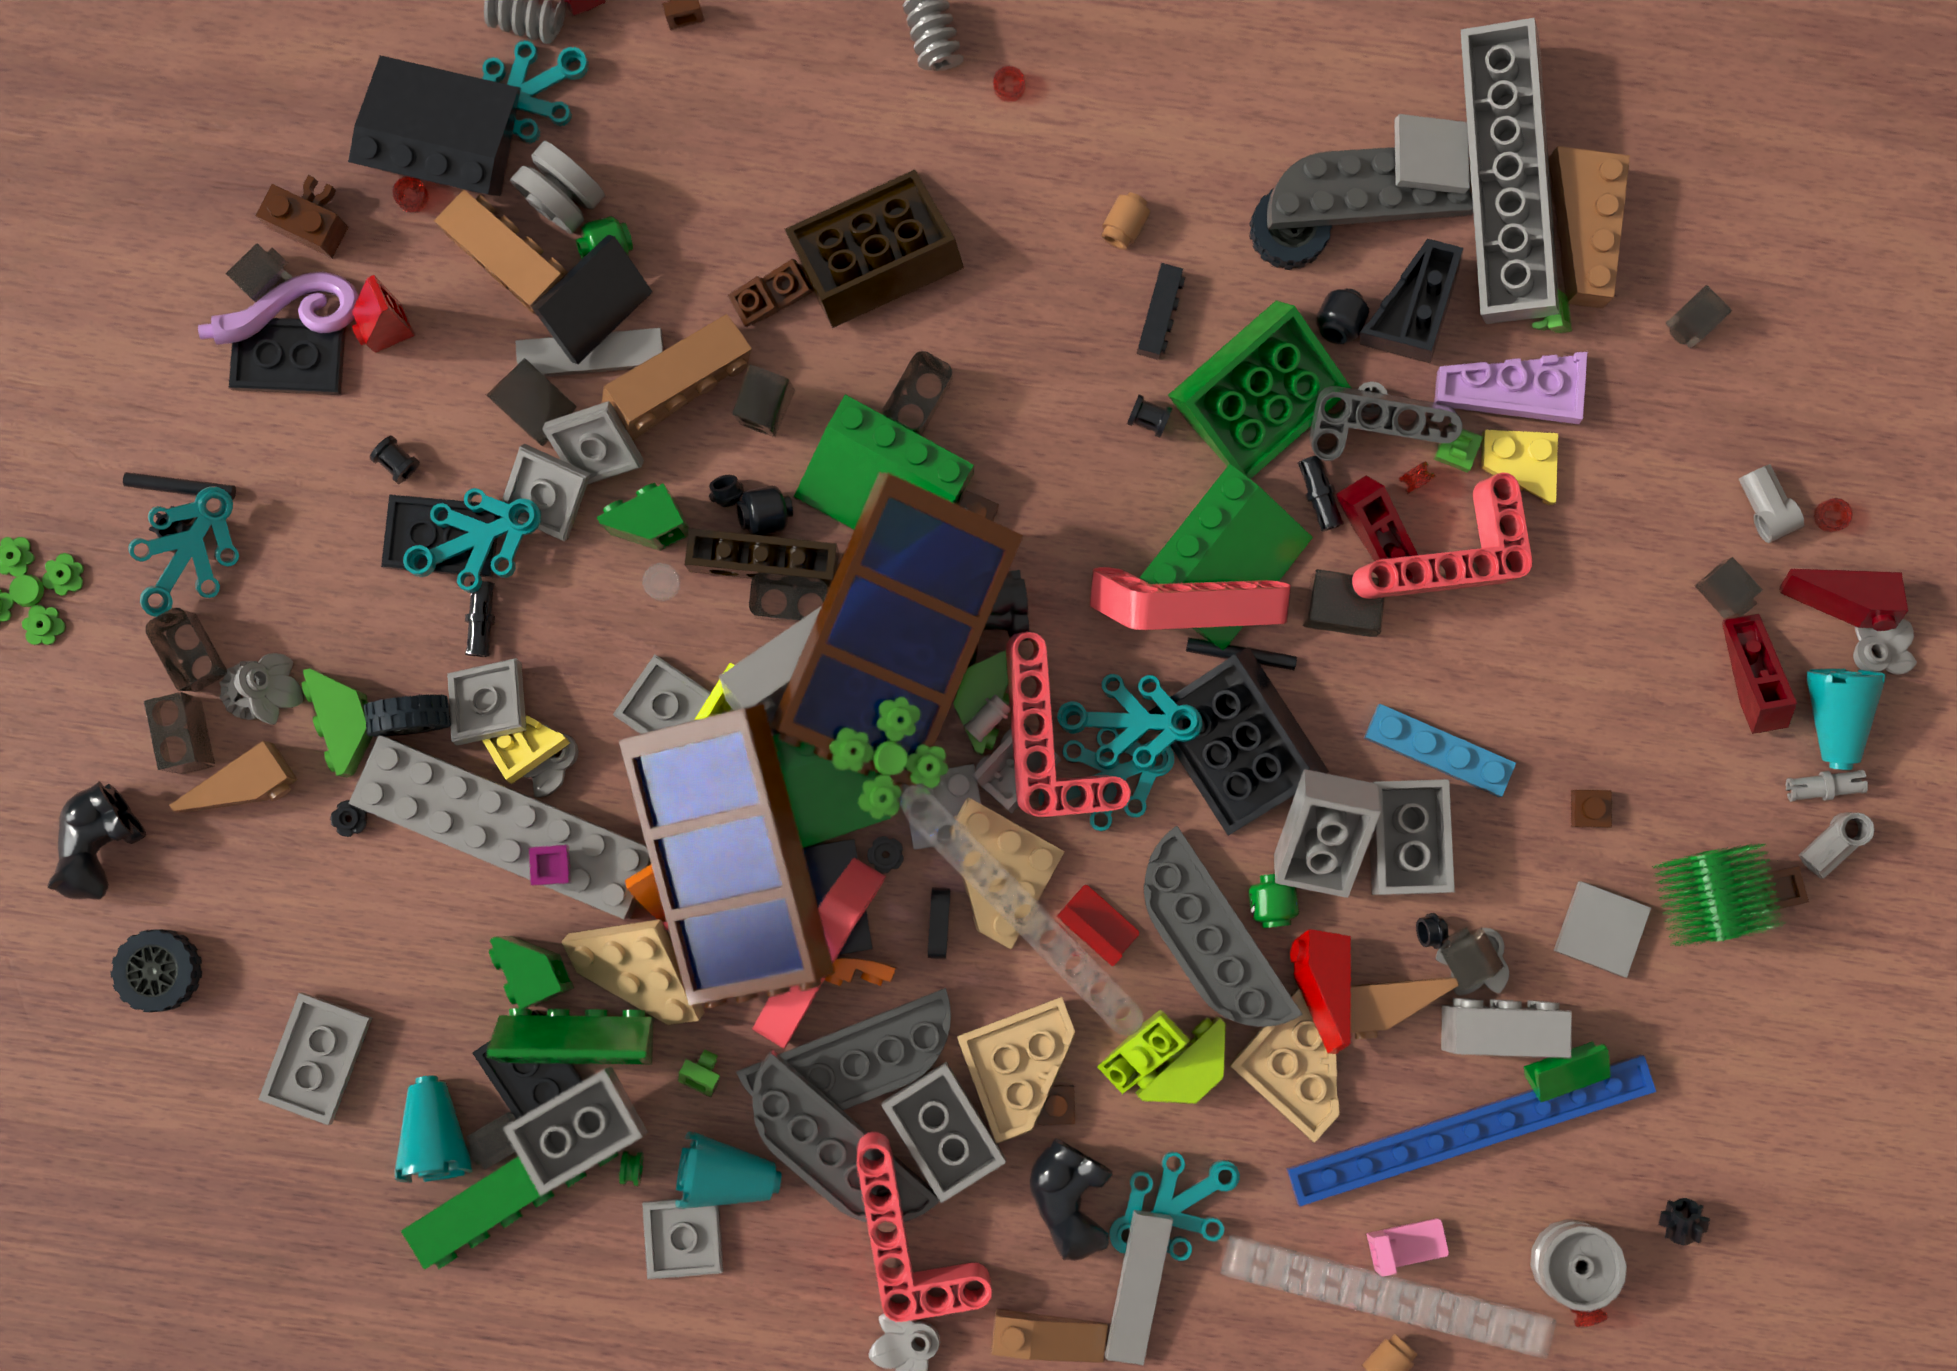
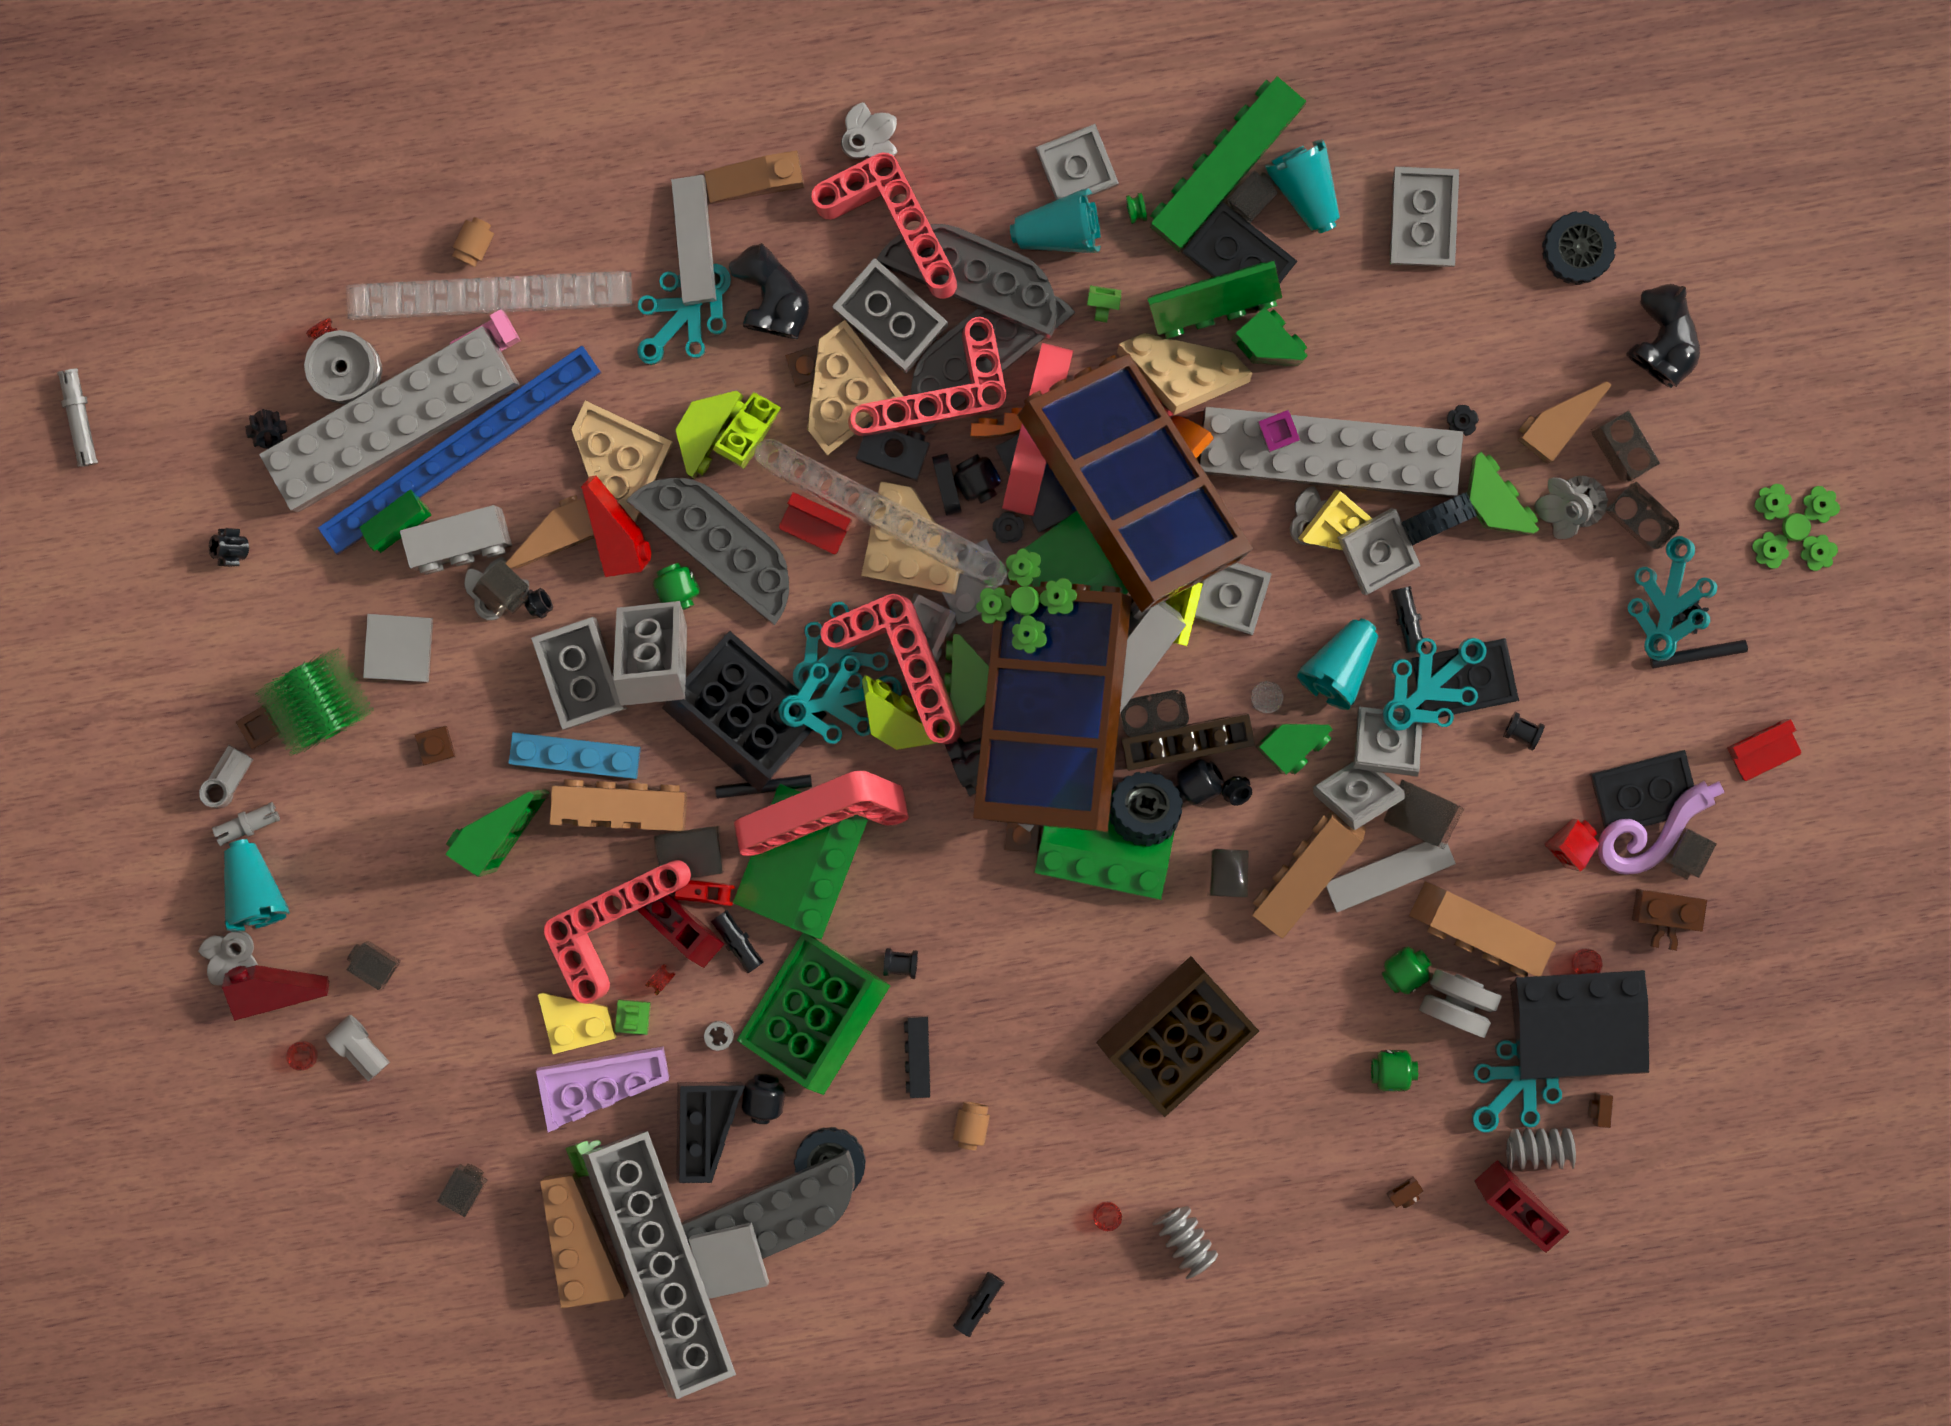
camera: 165 degrees right, 5 degrees up
(142, 362) = (1765, 749): none -> red panel
(445, 35) = (1601, 1109): none -> reddish brown plate
(567, 590) = (1341, 664): none -> teal cone
(575, 1130) = (1188, 224): light grey brick -> none
(592, 299) = (1398, 915): black tile -> none
(653, 142) = (1394, 1070): none -> green head
(770, 293) = (1253, 971): reddish brown slope -> none
(829, 498) = (1145, 808): none -> black wheel
(903, 918) = (977, 478): none -> black head
(908, 380) = (1103, 919): clear smoke piece -> none
(914, 1019) = (941, 398): none -> coral beam
(987, 717) = (957, 663): light grey pin -> none
(1009, 983) = (907, 464): none -> black brick
(1076, 682) = (894, 717): none -> lime slope
(1175, 32) = (978, 1304): none -> black pin
(1346, 559) = (699, 891): none -> red bar
(1385, 422) = (701, 1015): dark grey beam -> none
(1410, 678) = (618, 806): none -> medium nougat wedge
(1542, 1189) = (389, 419): none -> light grey brick
(1570, 678) = (488, 840): none -> green slope
(1758, 675) = (329, 899): dark red slope -> none
(1763, 1100) = (228, 547): none -> black gear
(1893, 1310) = (77, 417): none -> light grey pin

